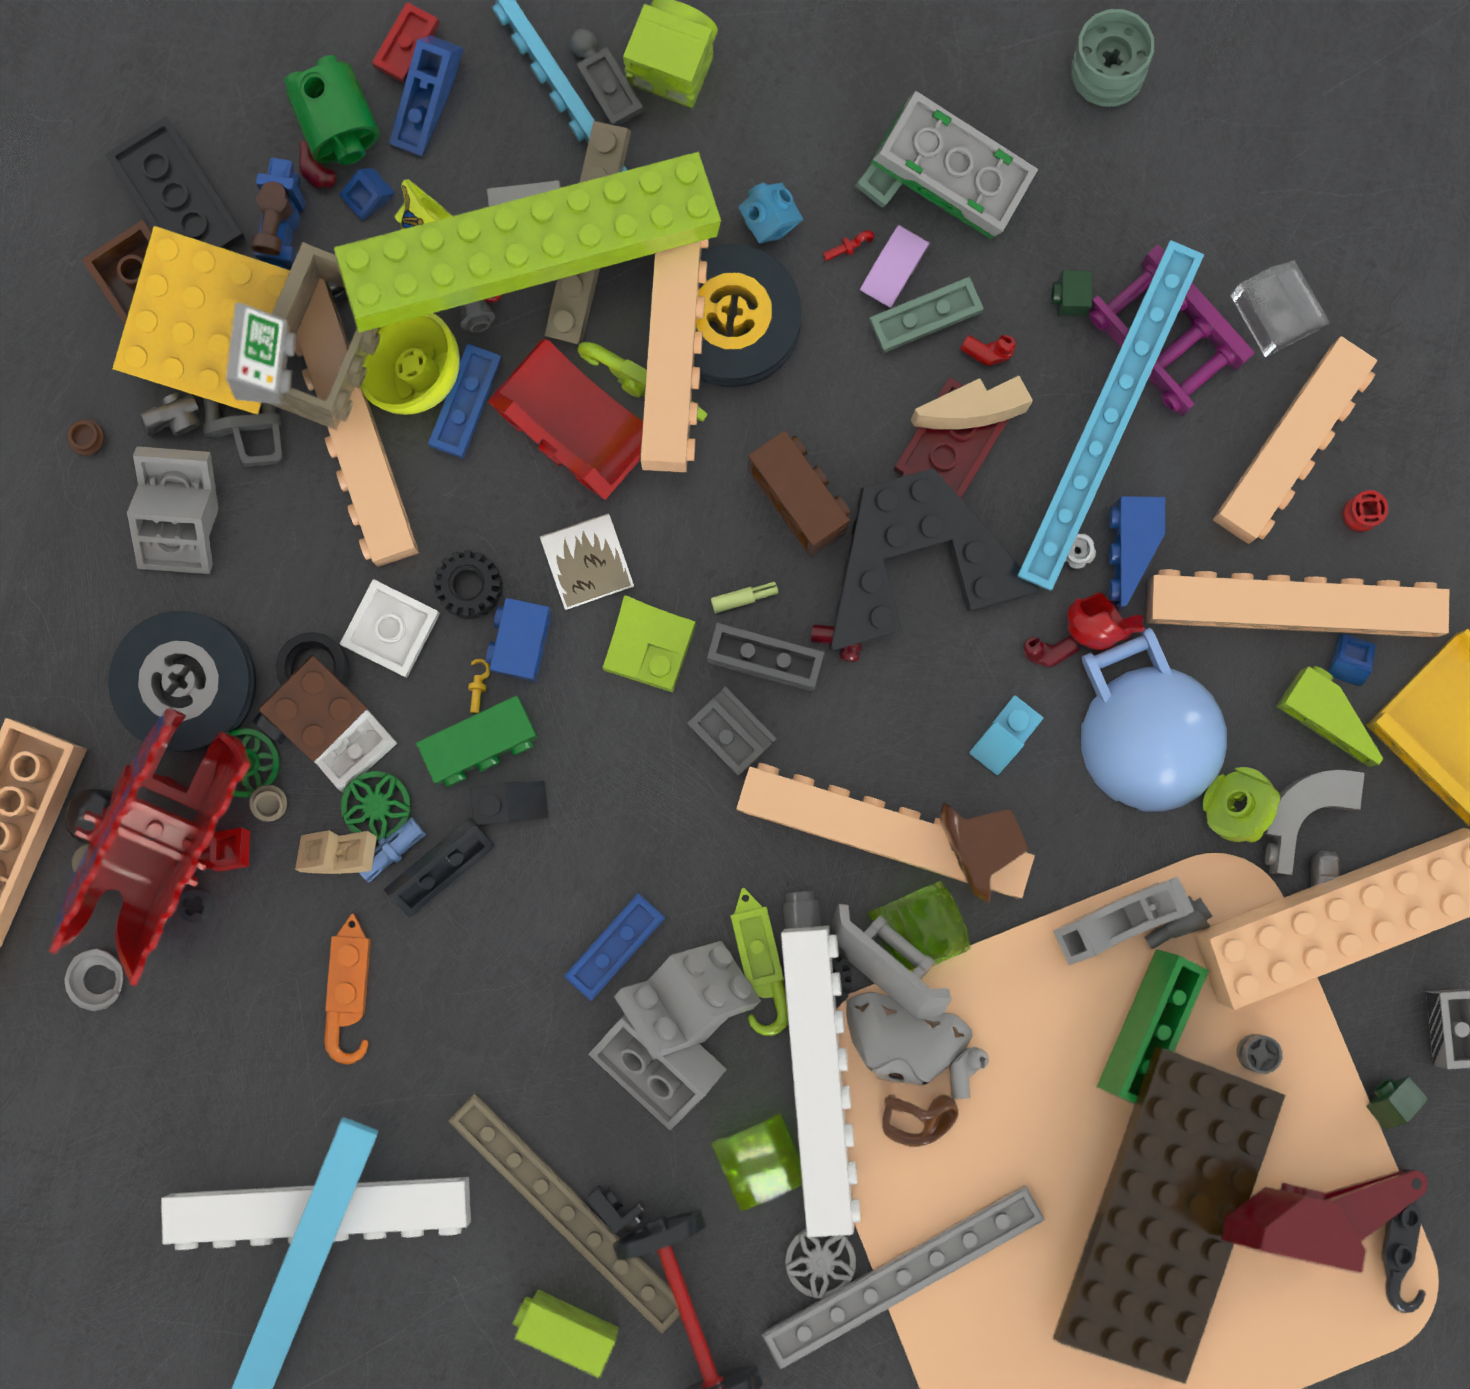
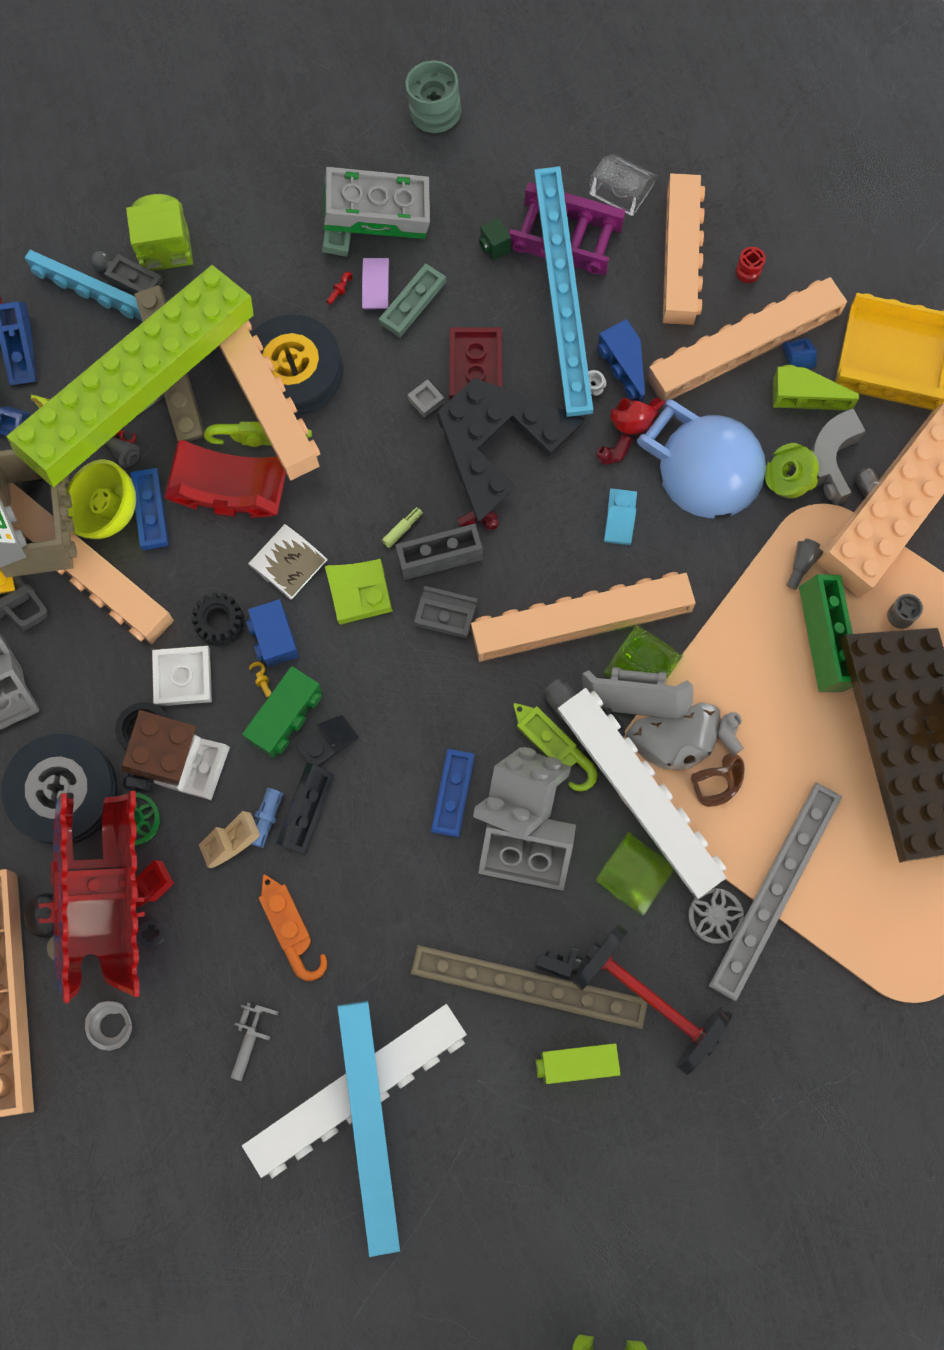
camera: 30 degrees left, 10 degrees down
(236, 1084) = (249, 1038): none -> light grey piece
(268, 803) = (163, 835): dark tan plate -> none
(375, 804) = (237, 794): green wheel -> none
(770, 212) = (278, 292): dark azure brick -> none
(799, 492) = (398, 441): reddish brown brick -> none
(866, 452) = (425, 398): none -> light grey plate
(974, 406) = (476, 331): tan slope -> none
(982, 845) = (650, 579): reddish brown piece -> none
(989, 353) = (465, 302): red arm -> none
(1123, 919) = (768, 576): light grey arch -> none

